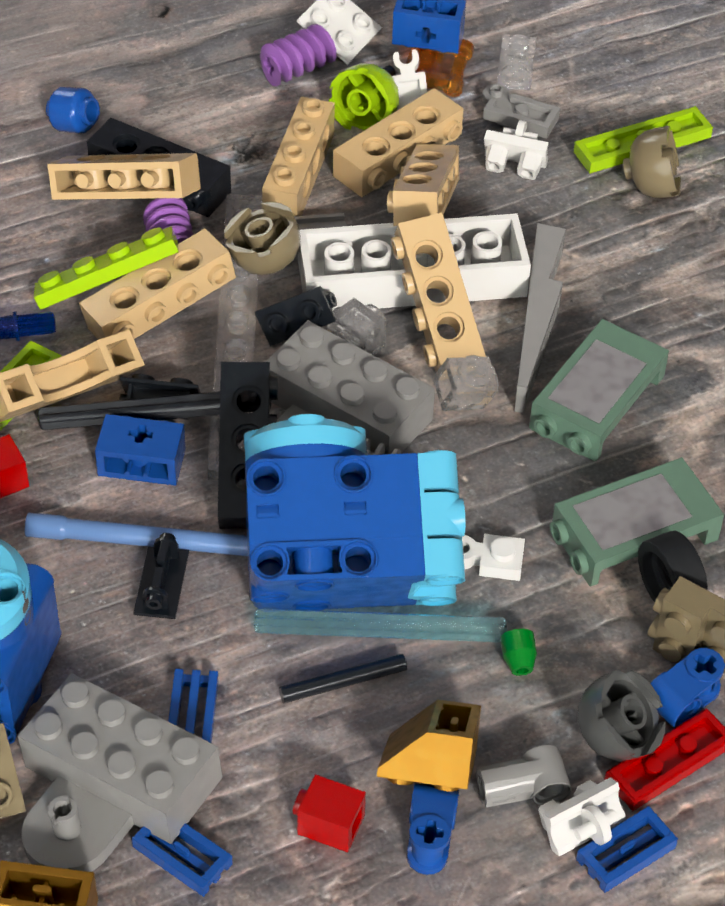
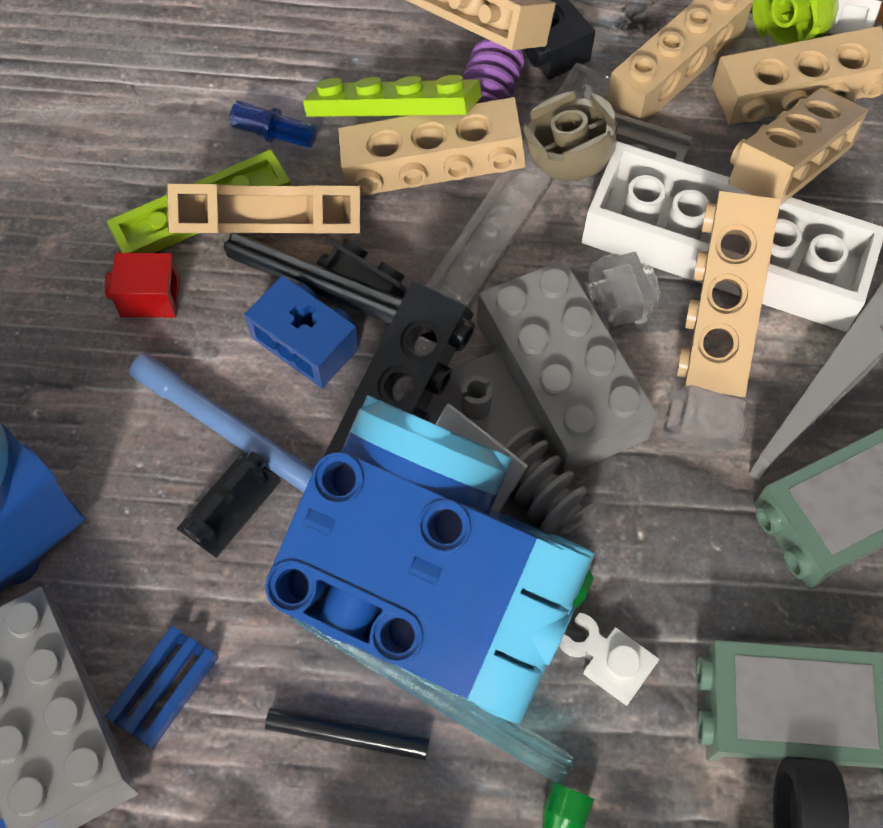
camera: 30 degrees right, 15 degrees up
(287, 316) = (552, 241): black hinge -> none

